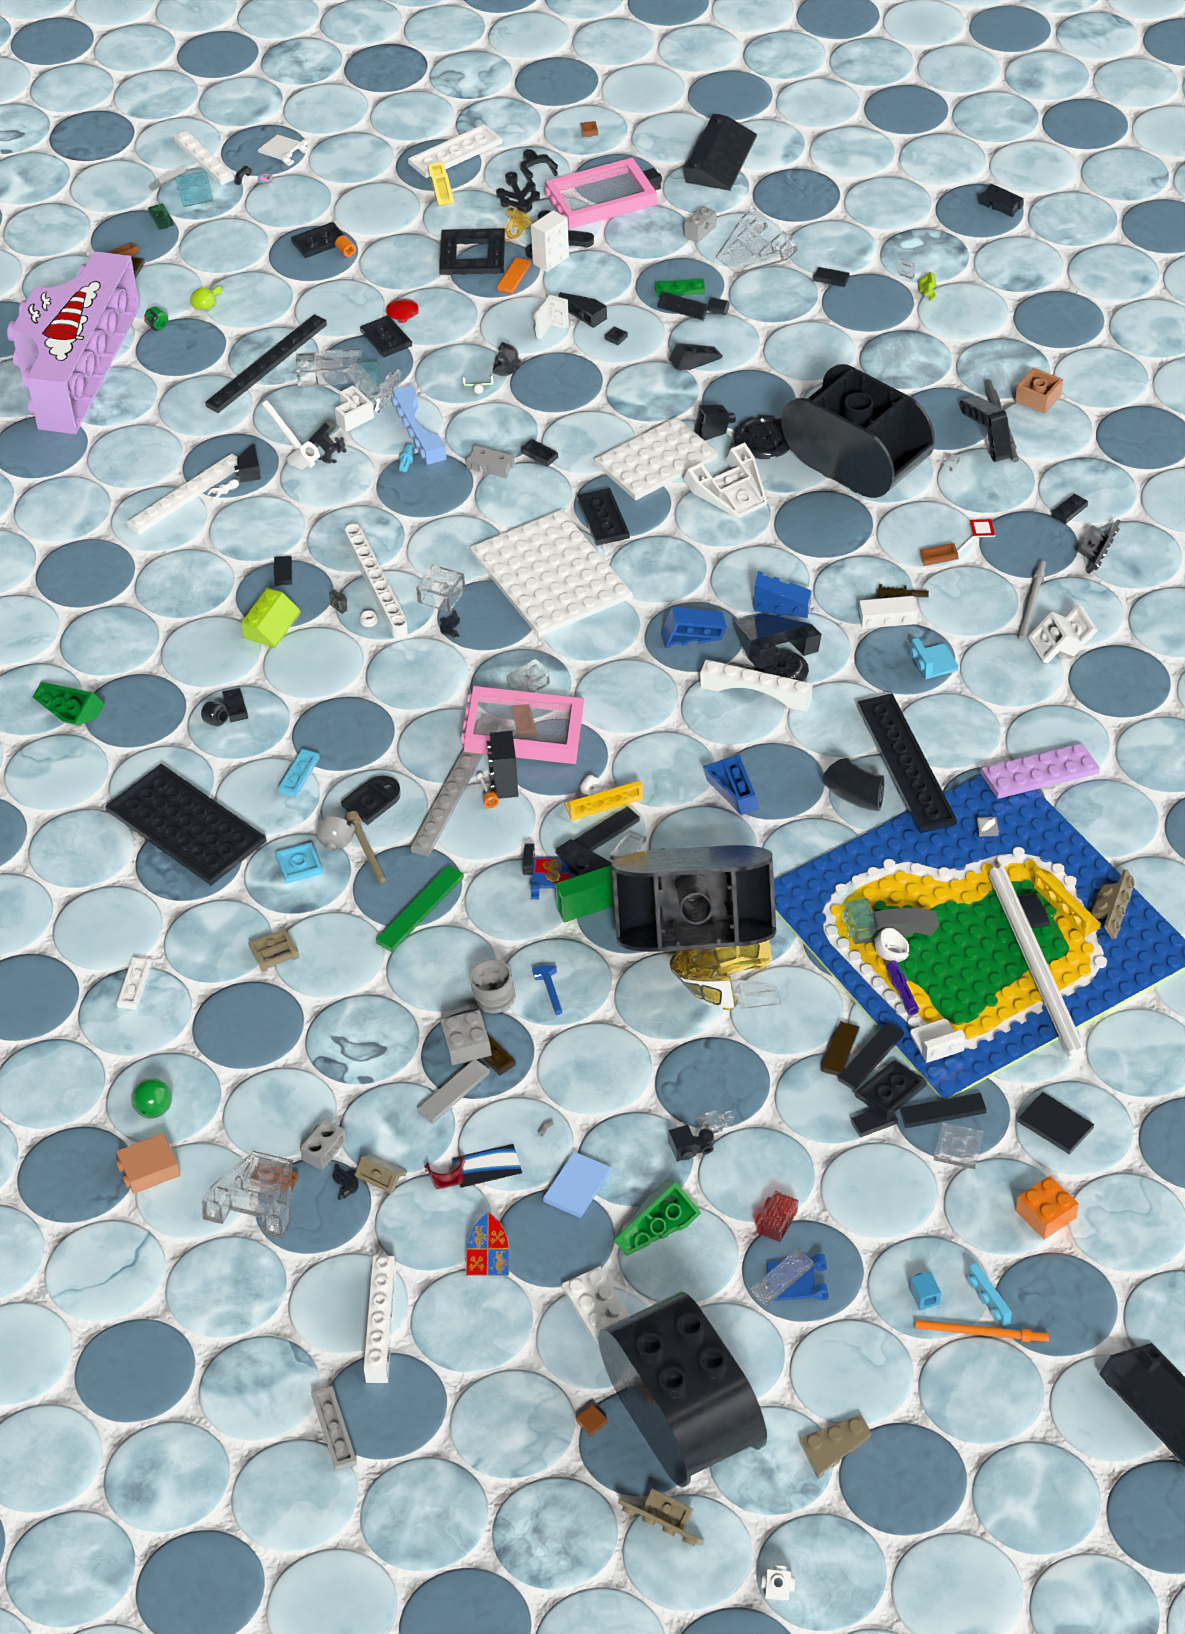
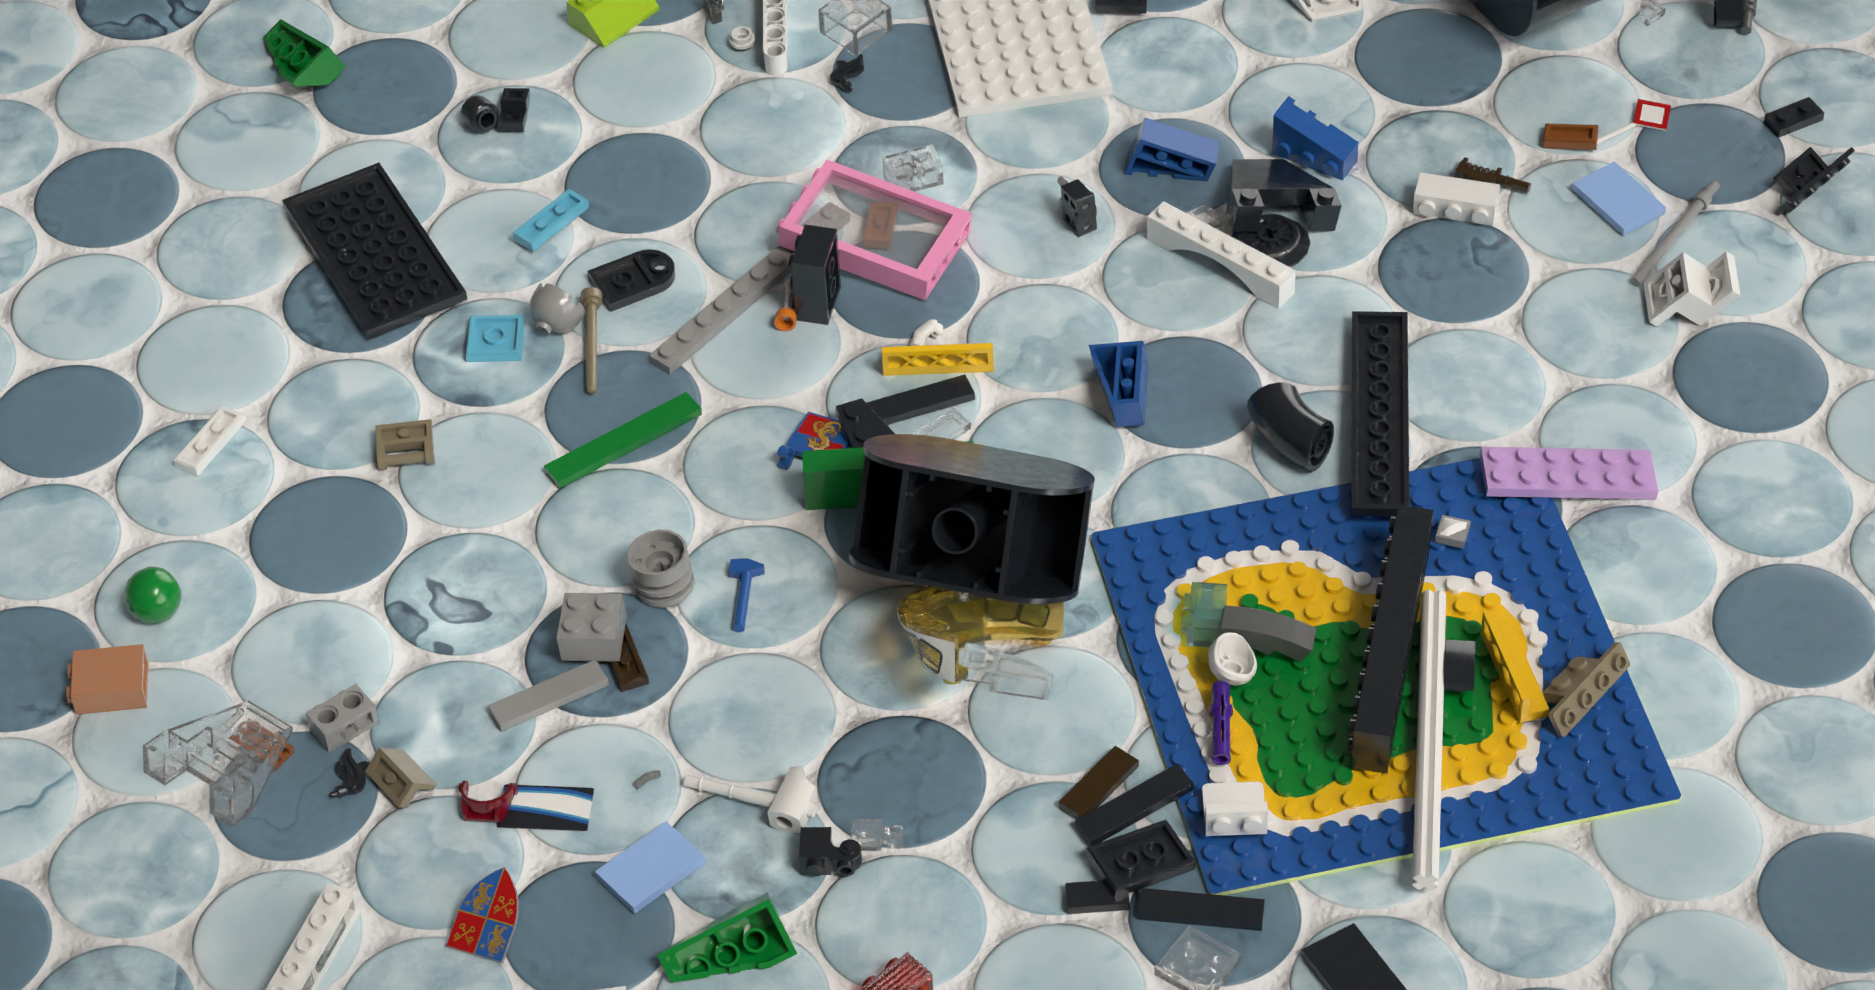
camera: 20 degrees right, 0 degrees up
(528, 858) = (796, 410): black beam -> none
(649, 676) = (1078, 206): none -> black piece
(652, 1117) = (787, 809): none -> white piece
(731, 660) = (1207, 215): none -> clear tile
(932, 660) = (1489, 281): medium azure bracket -> none
(987, 587) = (1618, 198): none -> light blue tile
(987, 905) = (1390, 639): none -> black brick

